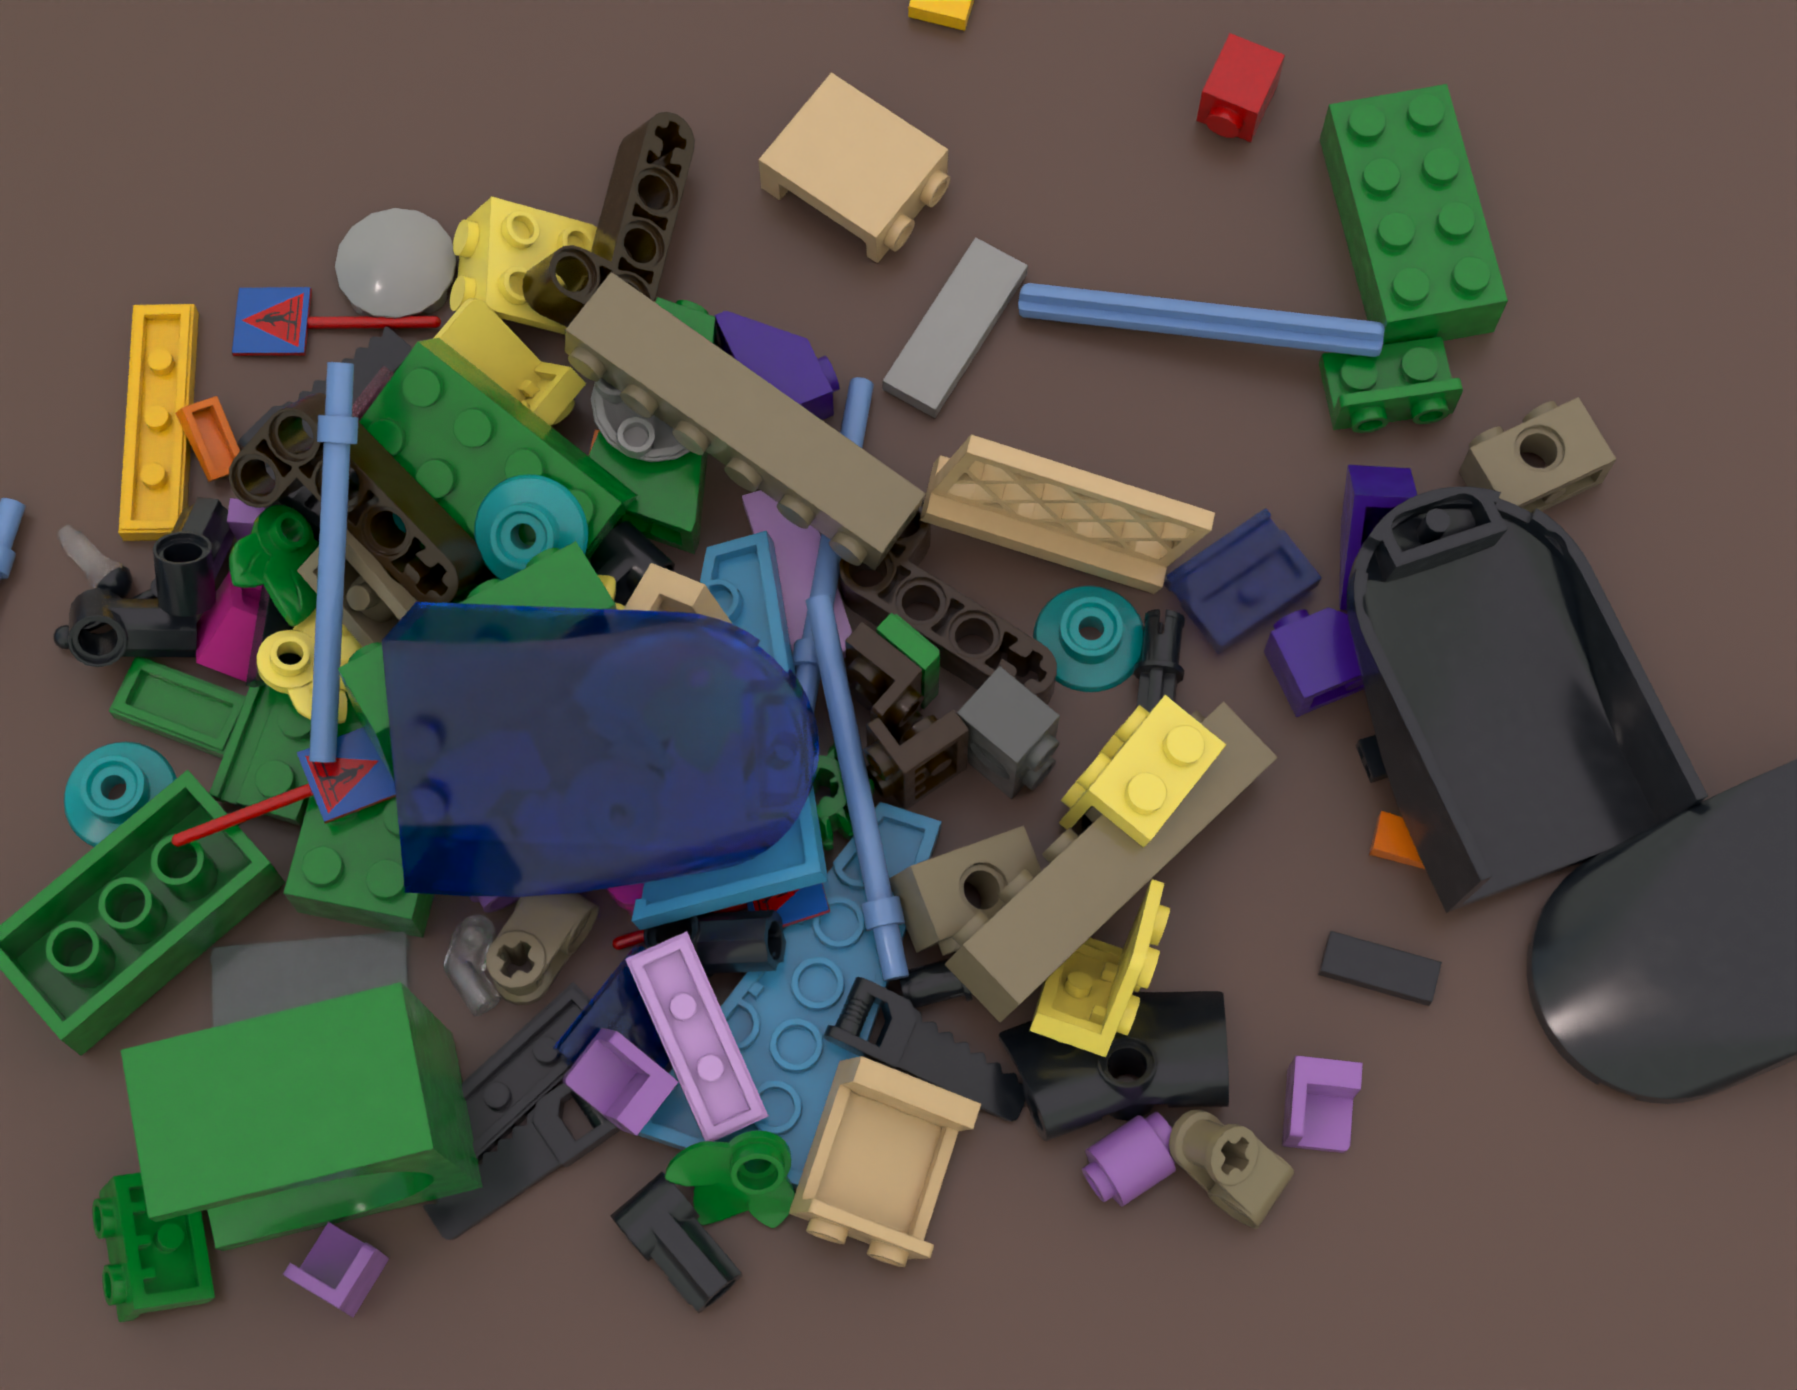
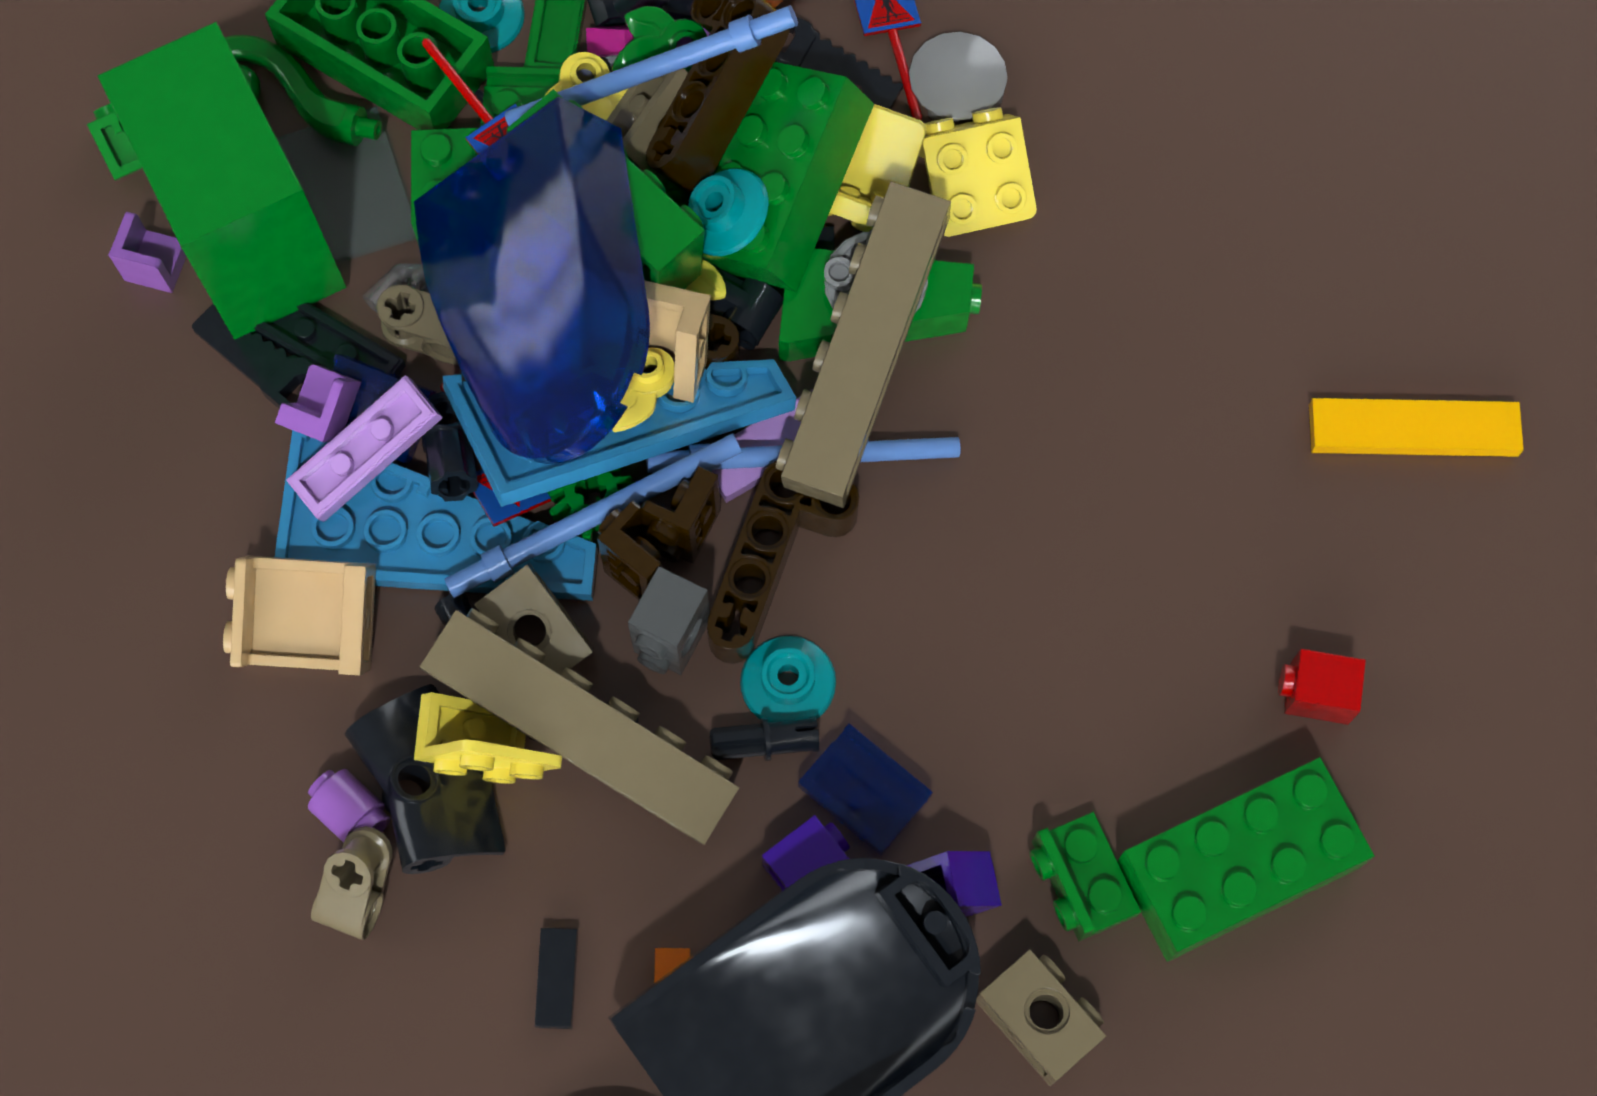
camera: 75 degrees right, 0 degrees up
(216, 1002) = (328, 117): none -> green plant
(622, 223) = (1036, 227): dark brown beam -> none
(667, 1230) = (223, 472): black piece -> none
(737, 1177) = (269, 510): green plate -> none
(781, 360) = (938, 378): dark purple slope -> none
(857, 165) = (1145, 391): tan panel -> none
(917, 649) = (712, 531): green tile -> none
(923, 1052) = (400, 623): black piece -> none
(955, 327) = (1031, 508): light grey tile -> none
(1061, 513) = (865, 616): tan fence -> none
(1144, 770) = (652, 733): light yellow bracket -> none
(1201, 319) = (1091, 704): medium blue axle -> none
(1320, 1103) = (425, 949): medium lavender panel -> none

